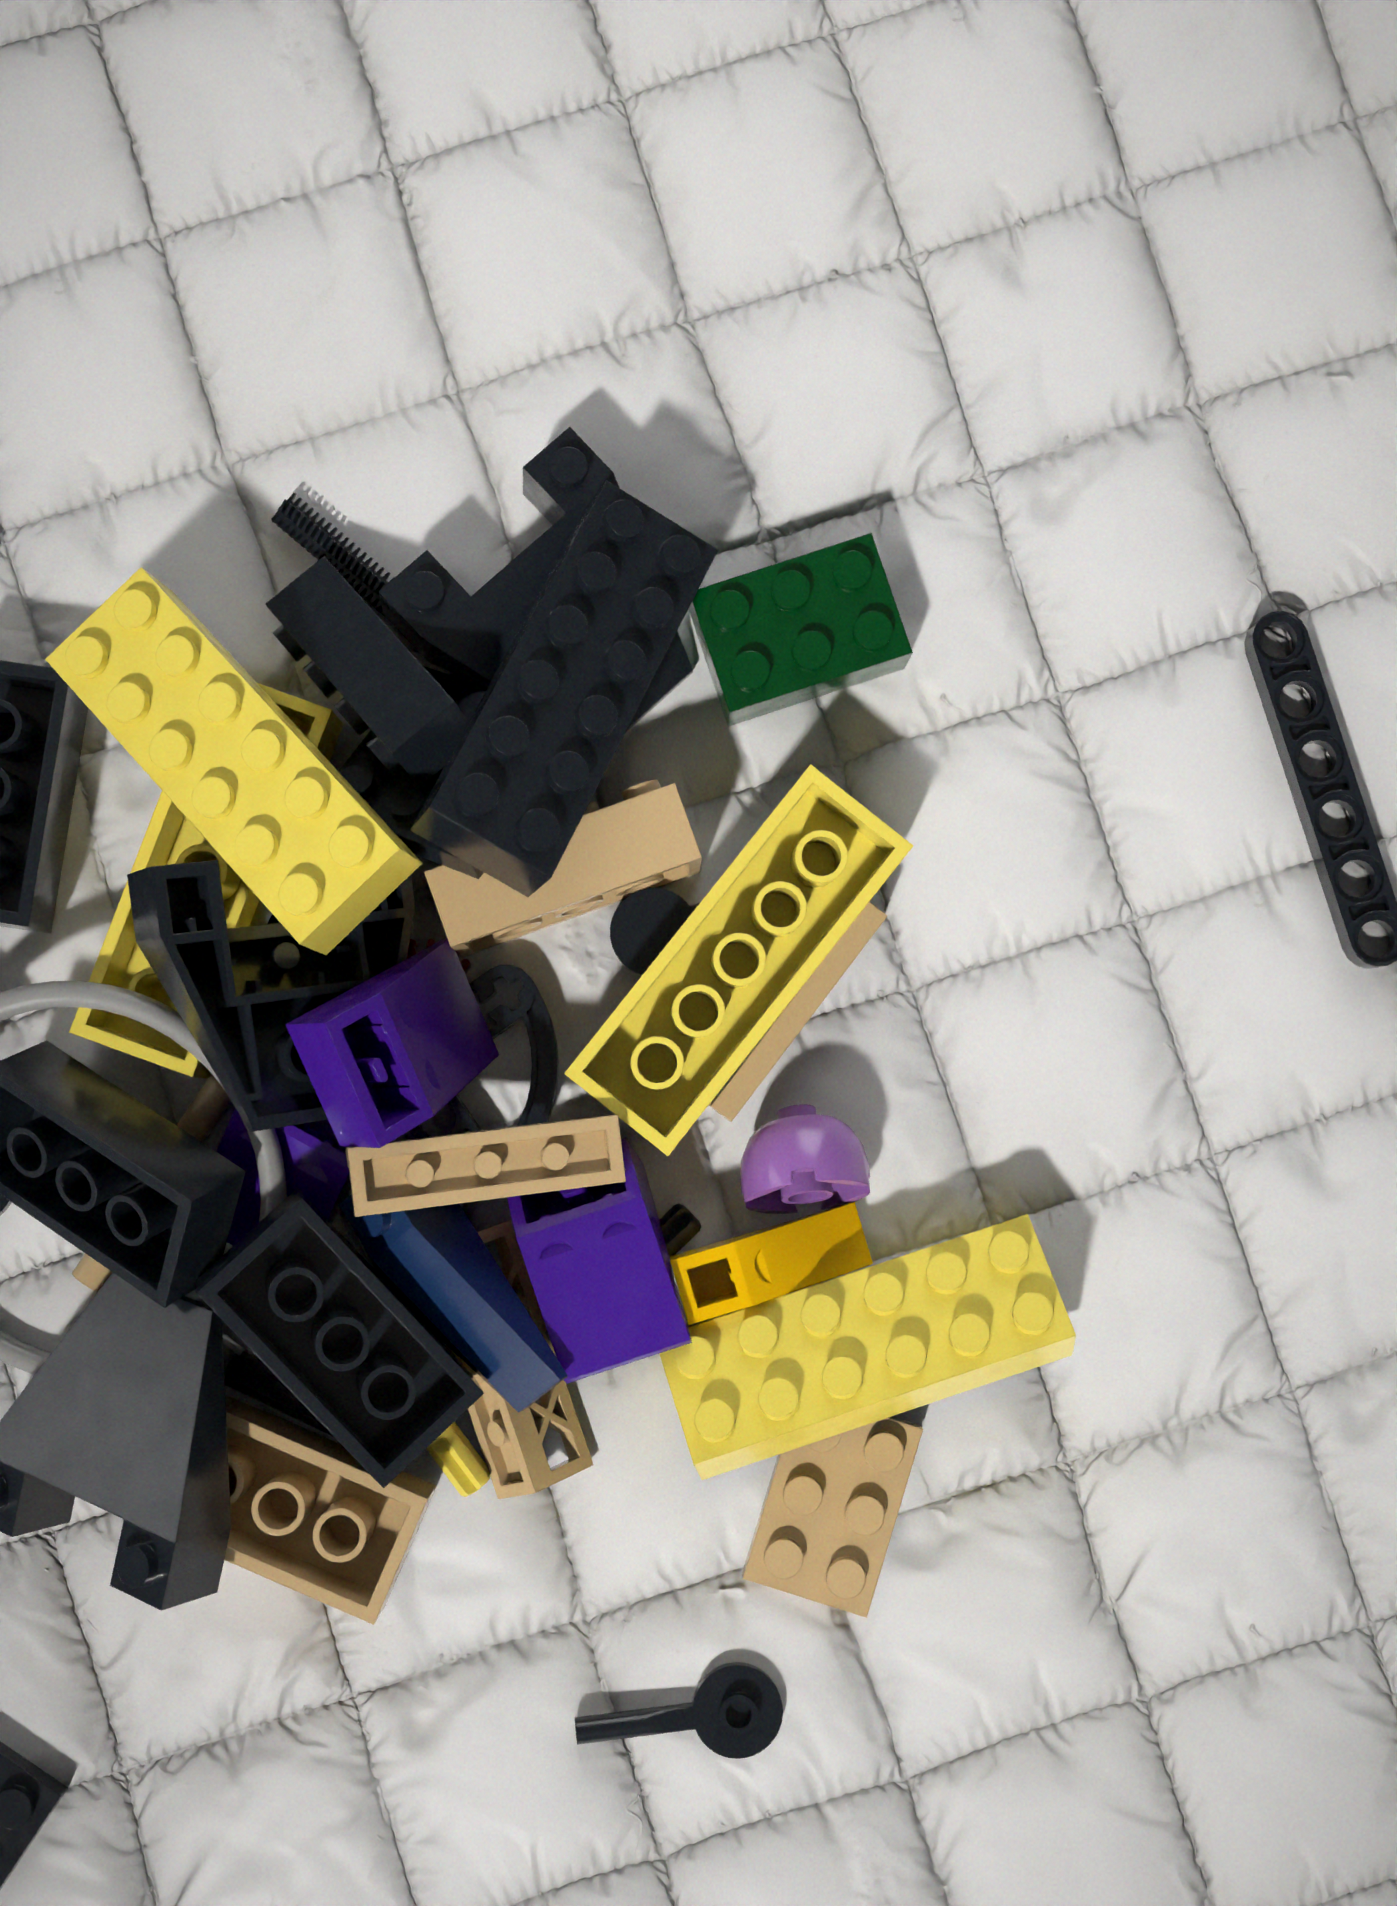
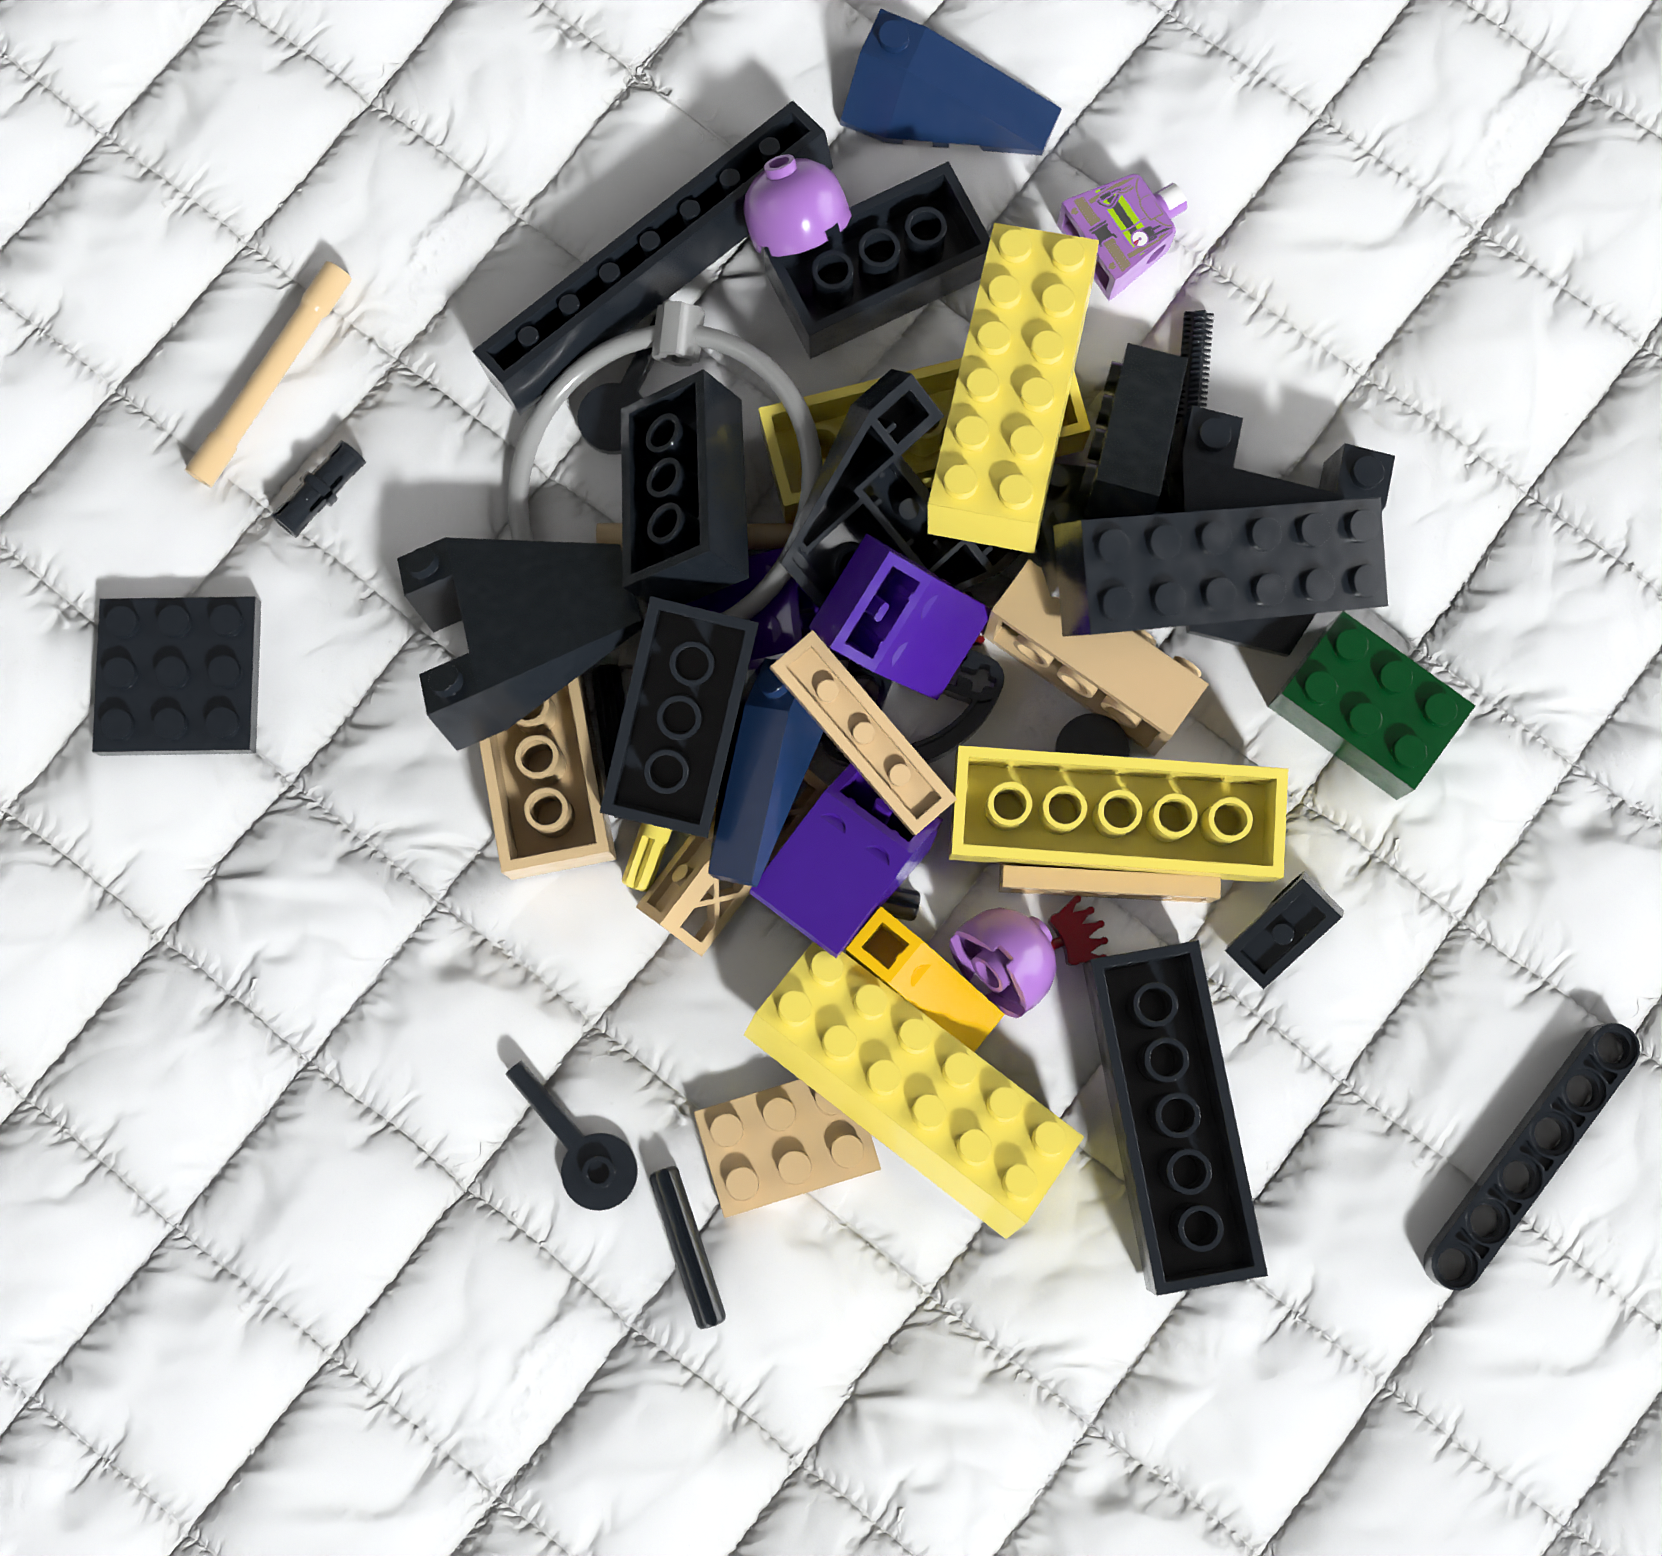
camera: 65 degrees right, 5 degrees down
(139, 520) = (1130, 227): none -> medium lavender torso
(823, 1077) = (1074, 935): none -> dark red piece
(870, 1672) = (687, 1247): none -> black axle
(959, 870) = (1284, 930): none -> black plate
(1067, 1111) = (1174, 1119): none -> black brick

